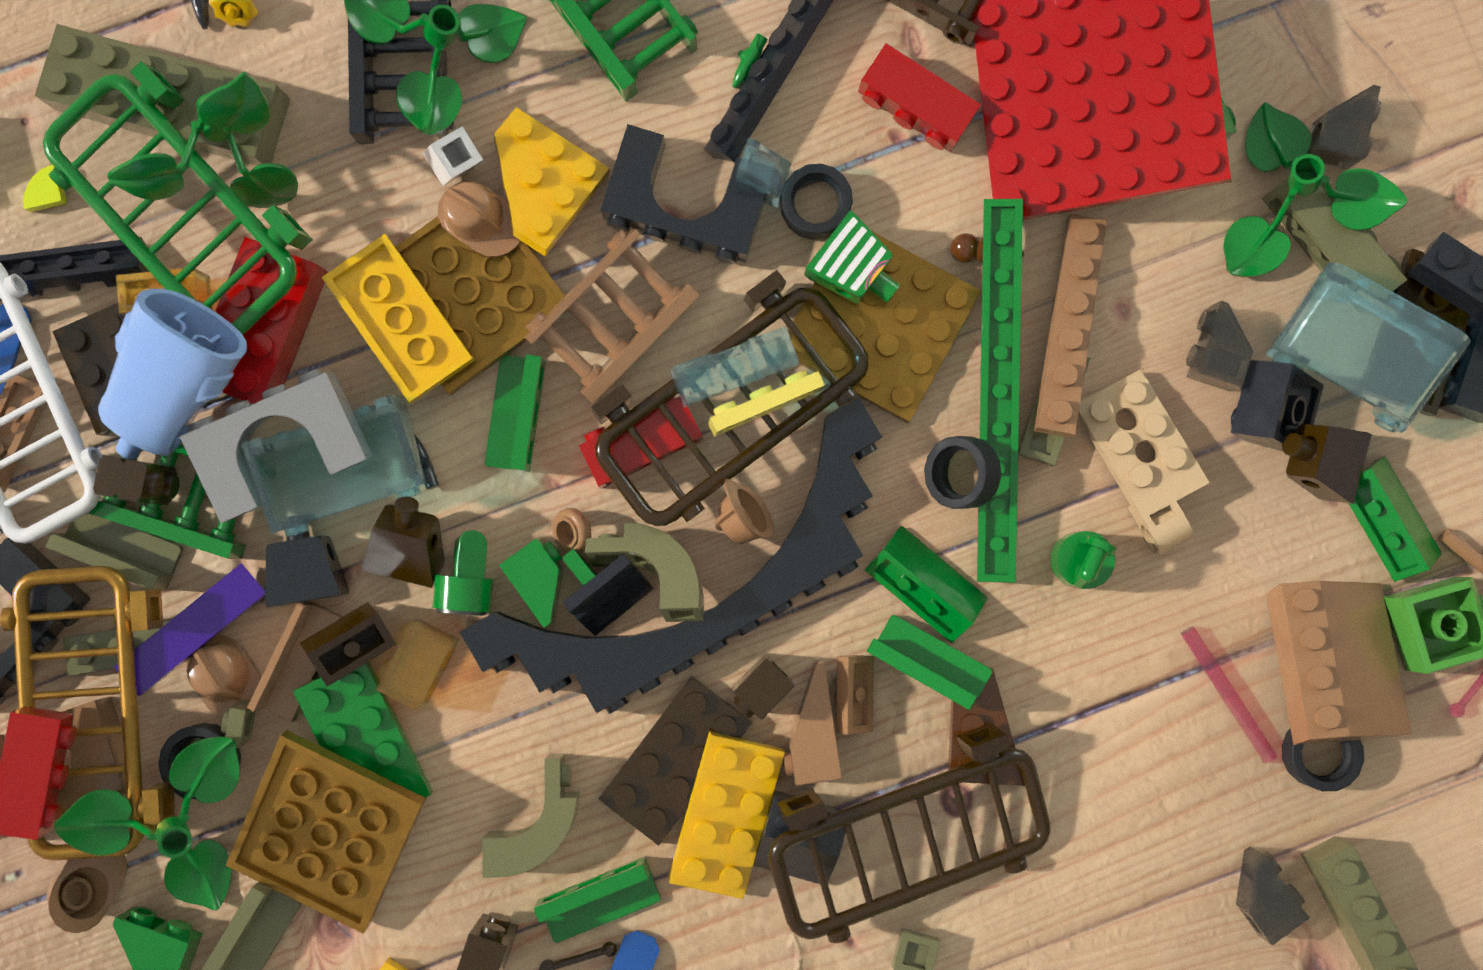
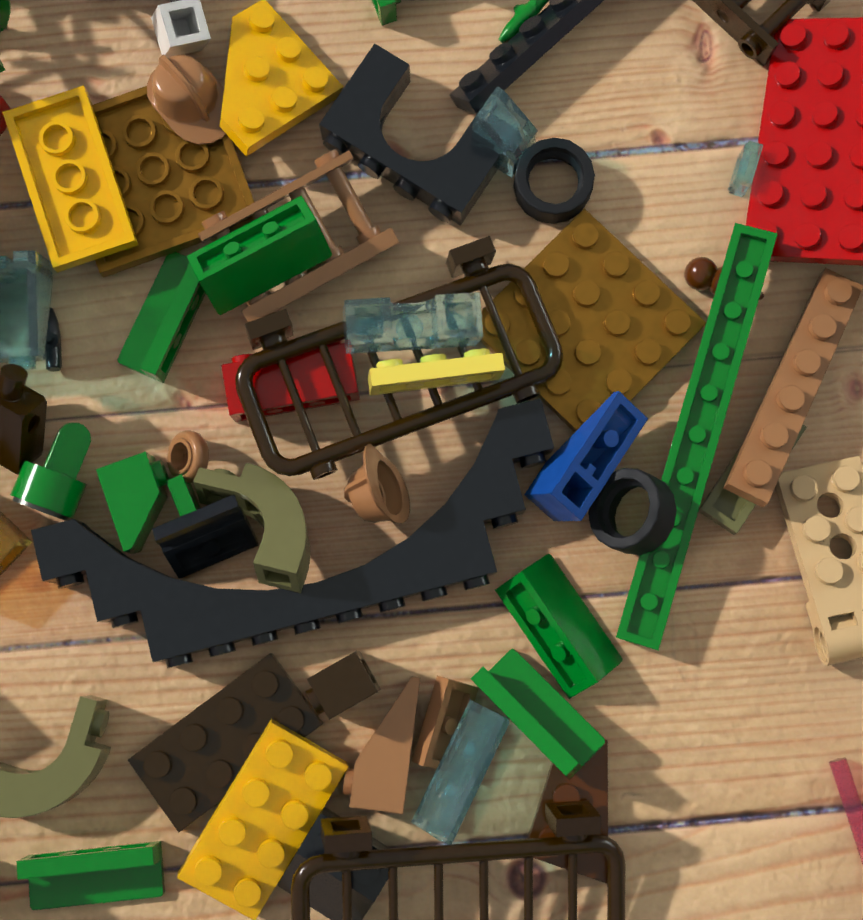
camera: 20 degrees right, 5 degrees down
(584, 341) = (260, 255): none -> green panel
(853, 263) = (574, 252): green torso -> none
(880, 730) = (460, 772): none -> clear light blue panel
(912, 439) = (586, 460): none -> blue slope
(917, 98) = (693, 102): red brick -> none
(978, 145) = (745, 168): none -> clear light blue tile
(1083, 559) = (740, 646): green piece -> none

